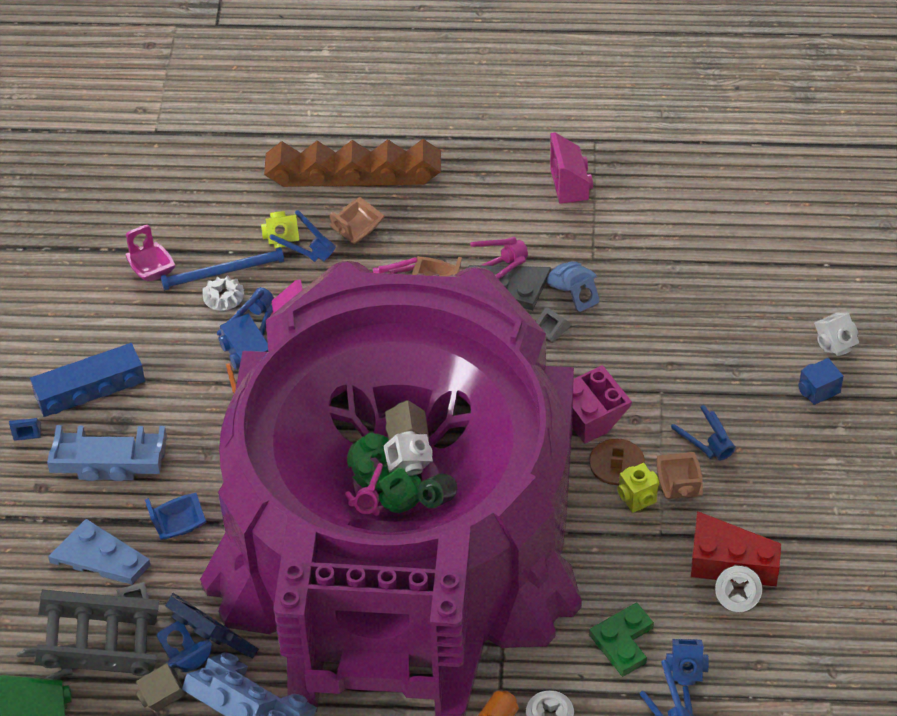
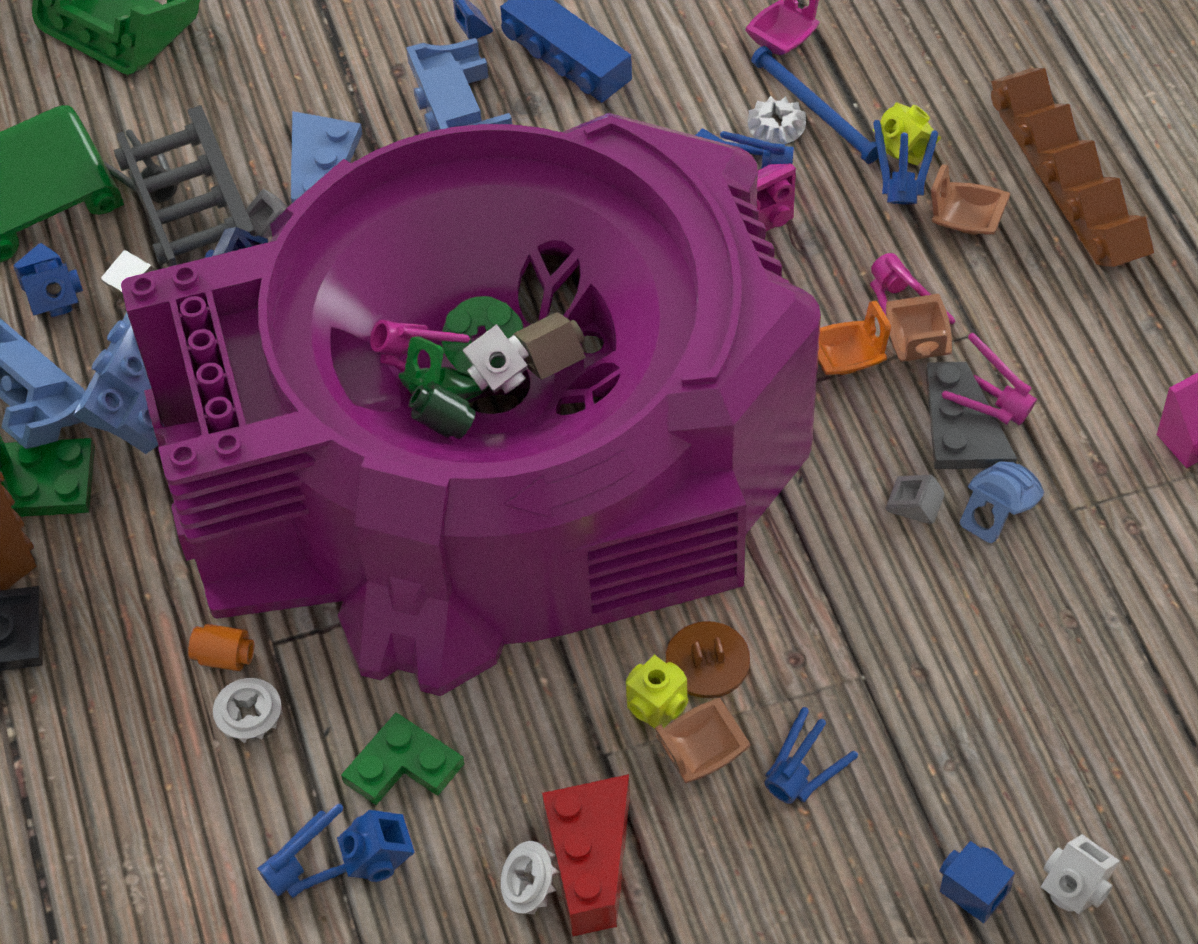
camera: 70 degrees right, 5 degrees up
(597, 404) = (778, 585): dark pink slope -> none

